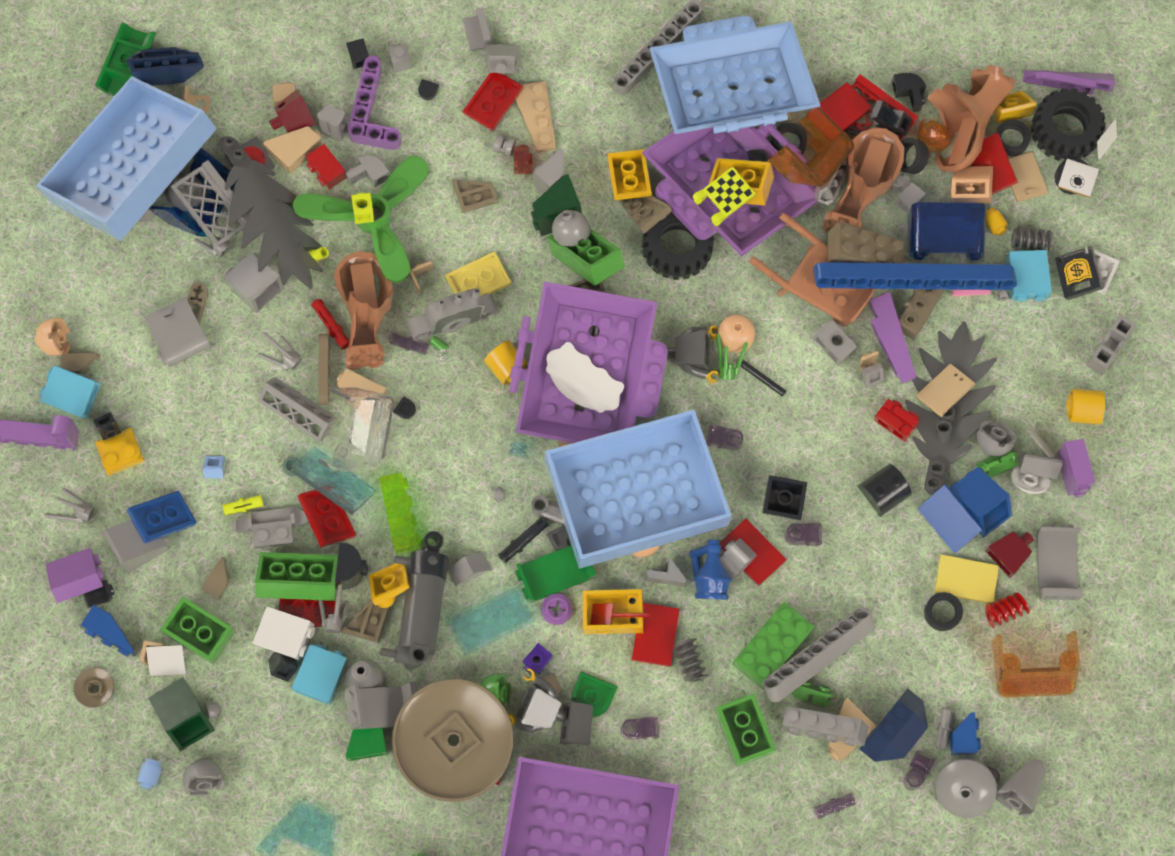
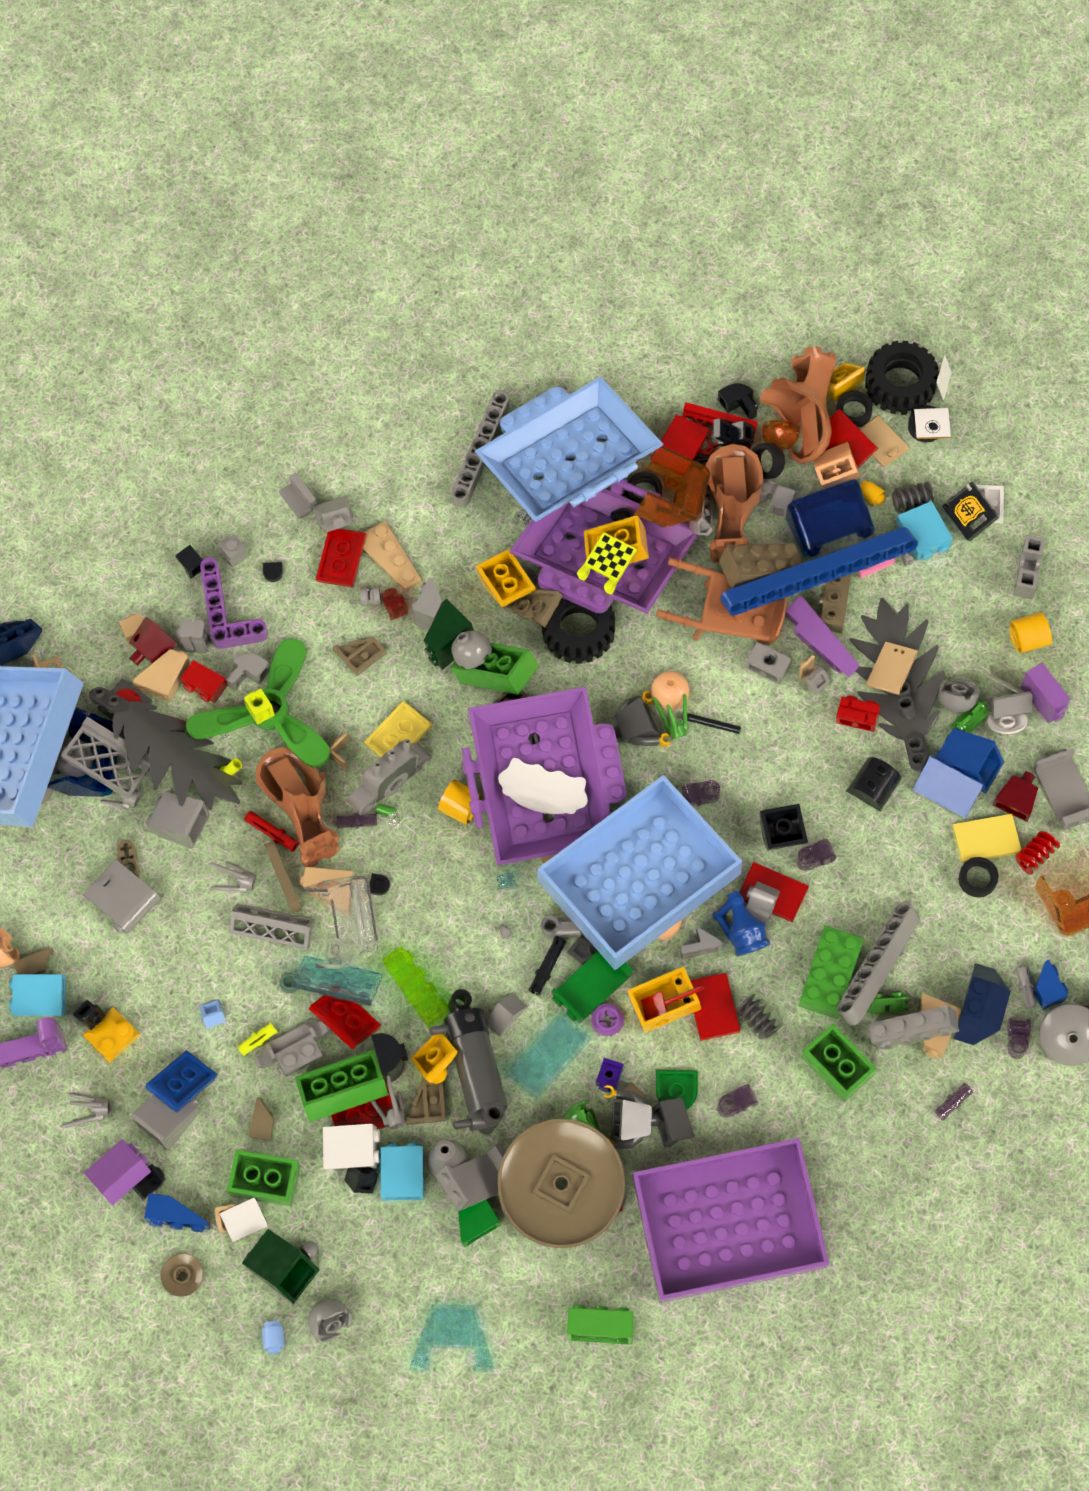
camera: 15 degrees left, 5 degrees down
(1078, 80) = (877, 338): medium lavender wedge -> none

